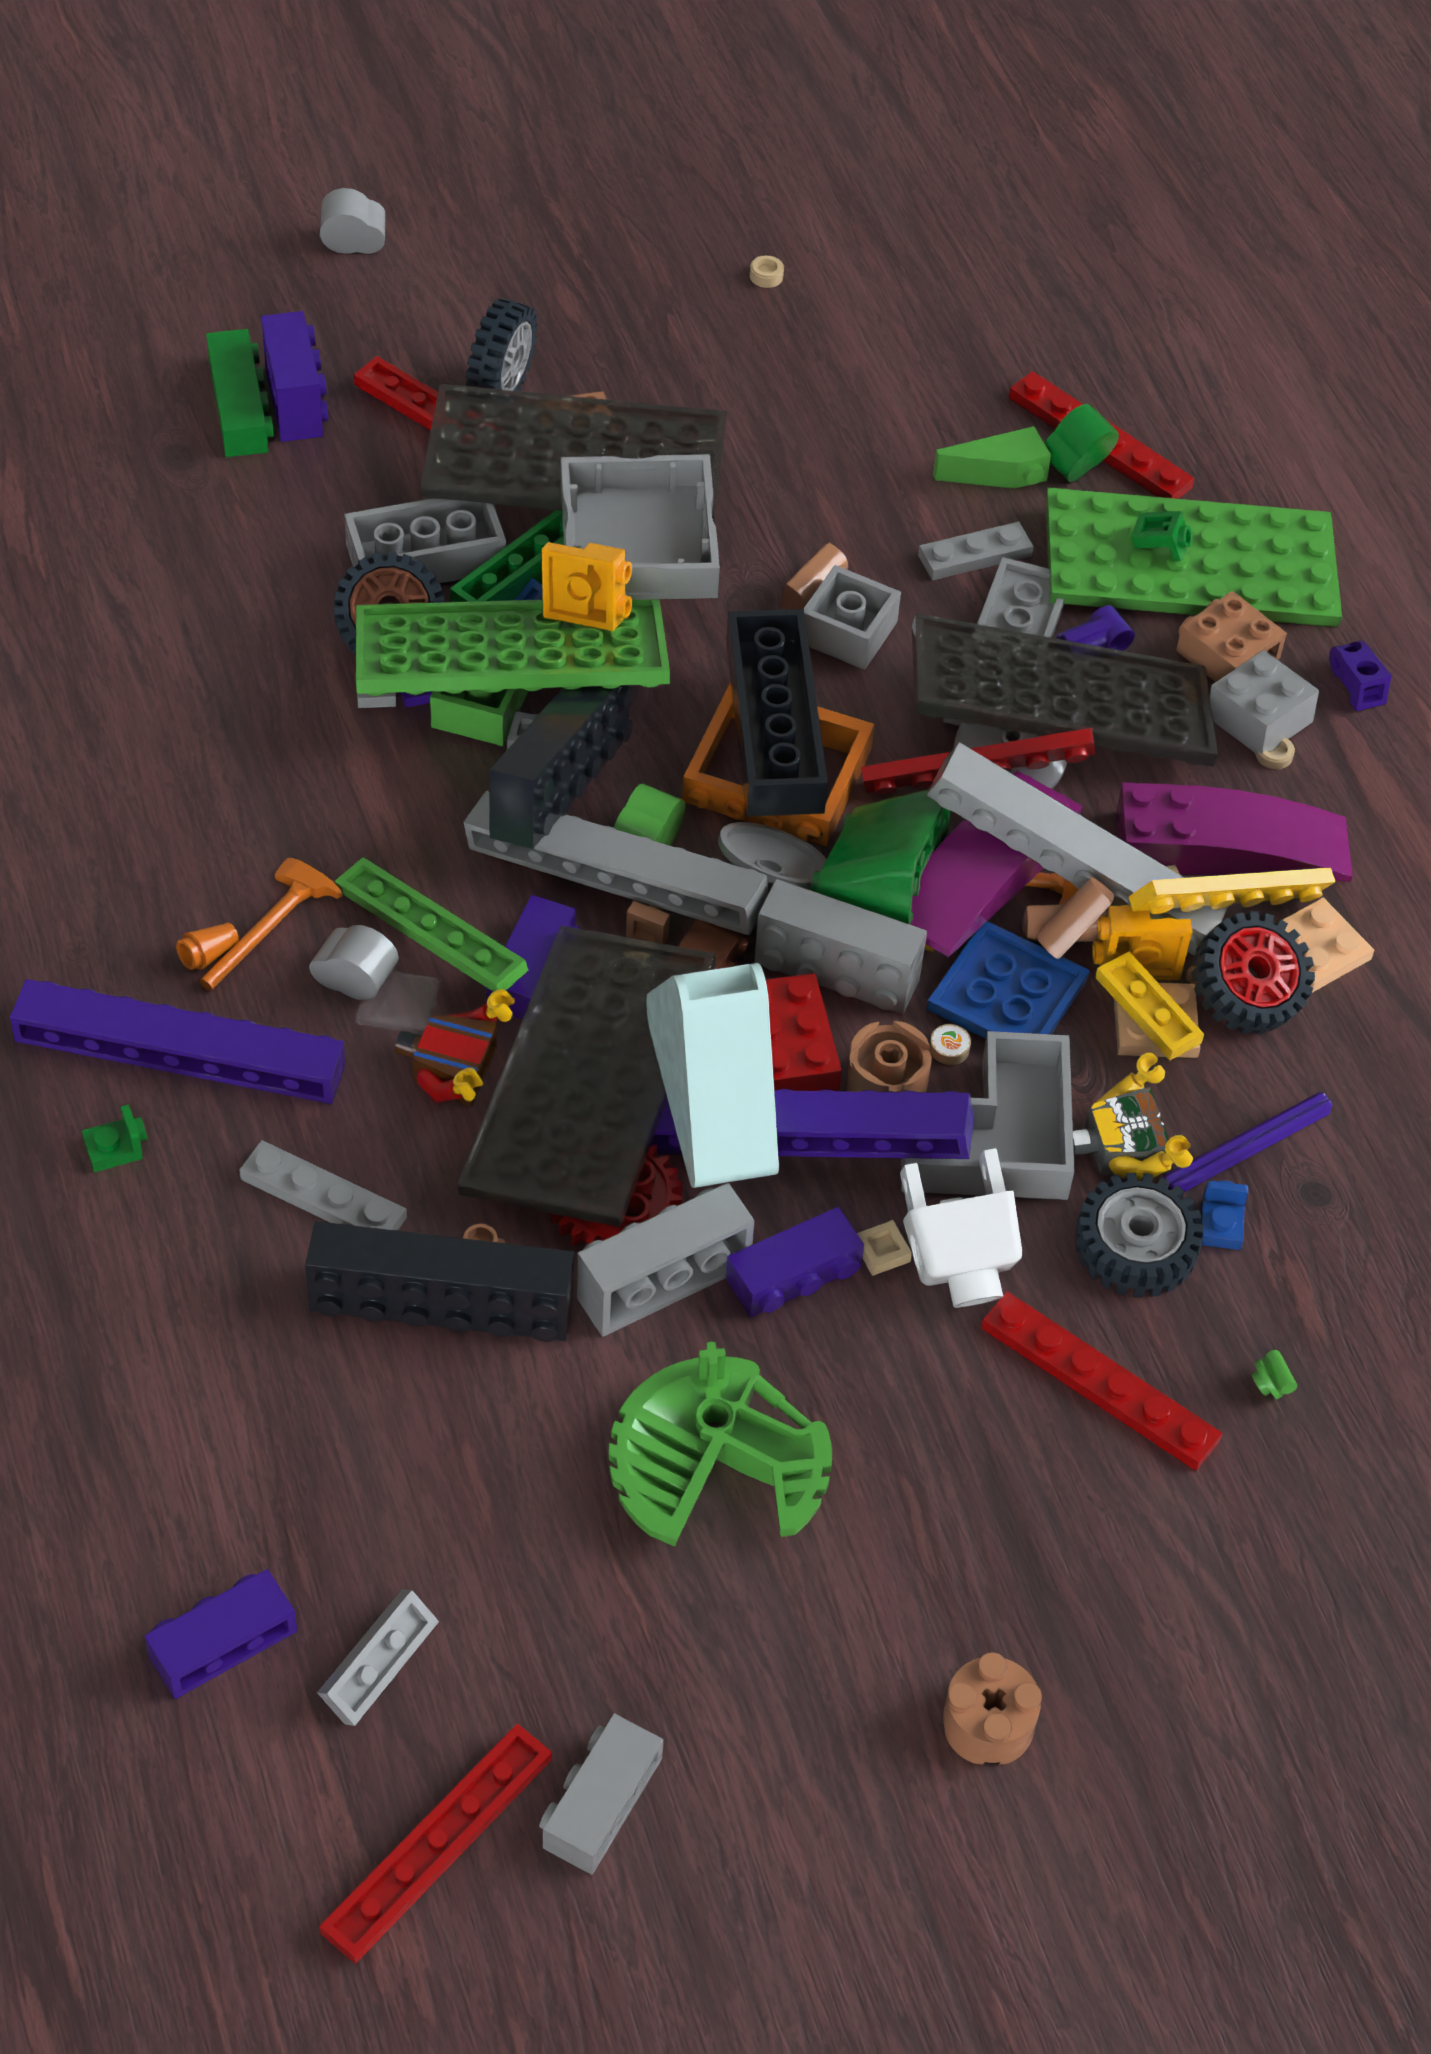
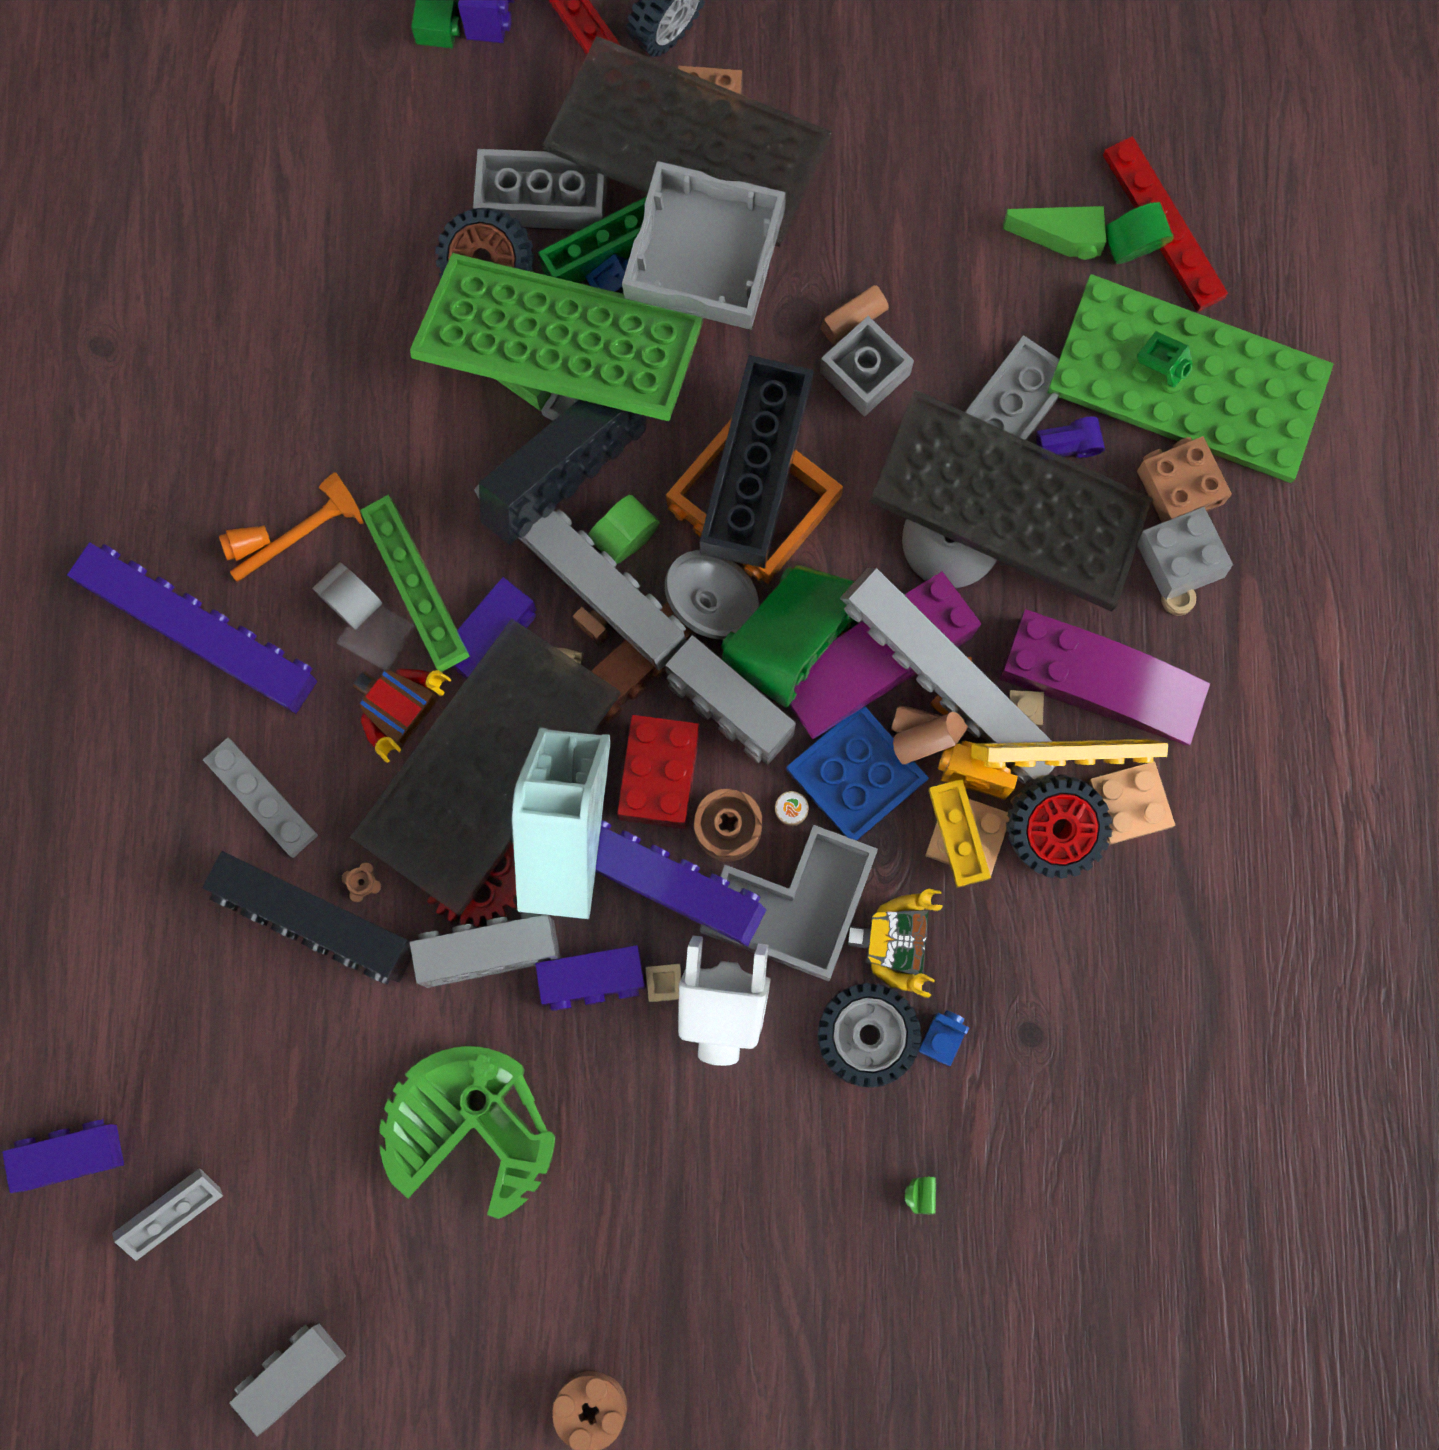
camera: 25 degrees right, 25 degrees up
(115, 1141) = (120, 703): green bracket -> none
(435, 1844) = (160, 1375): red plate -> none
(586, 585) = (632, 304): light orange plate -> none
(975, 550) = (1006, 317): light grey plate -> none
(1030, 752) = (927, 557): red plate -> none
(1102, 1381) = (790, 1152): red plate -> none
(1250, 1142) = (995, 975): dark purple axle -> none
(1361, 674) = (1284, 544): dark purple leg -> none

